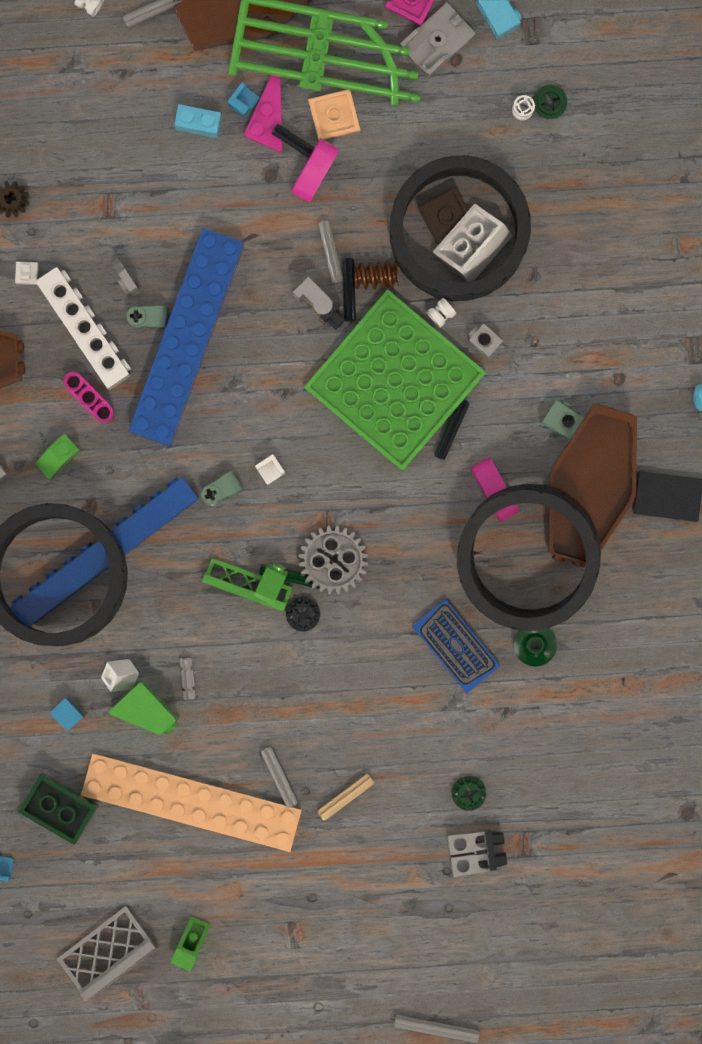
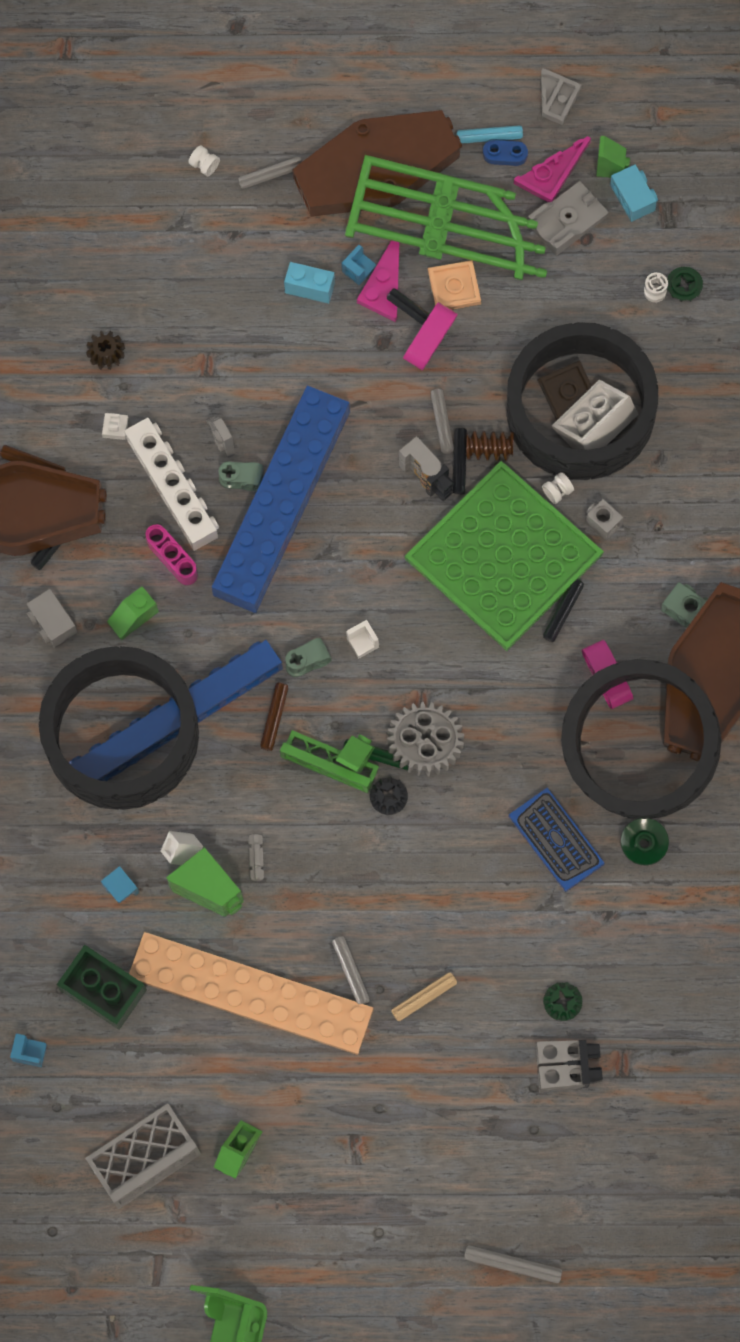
camera: 10 degrees right, 15 degrees down
(194, 546) = (274, 716): none -> reddish brown axle

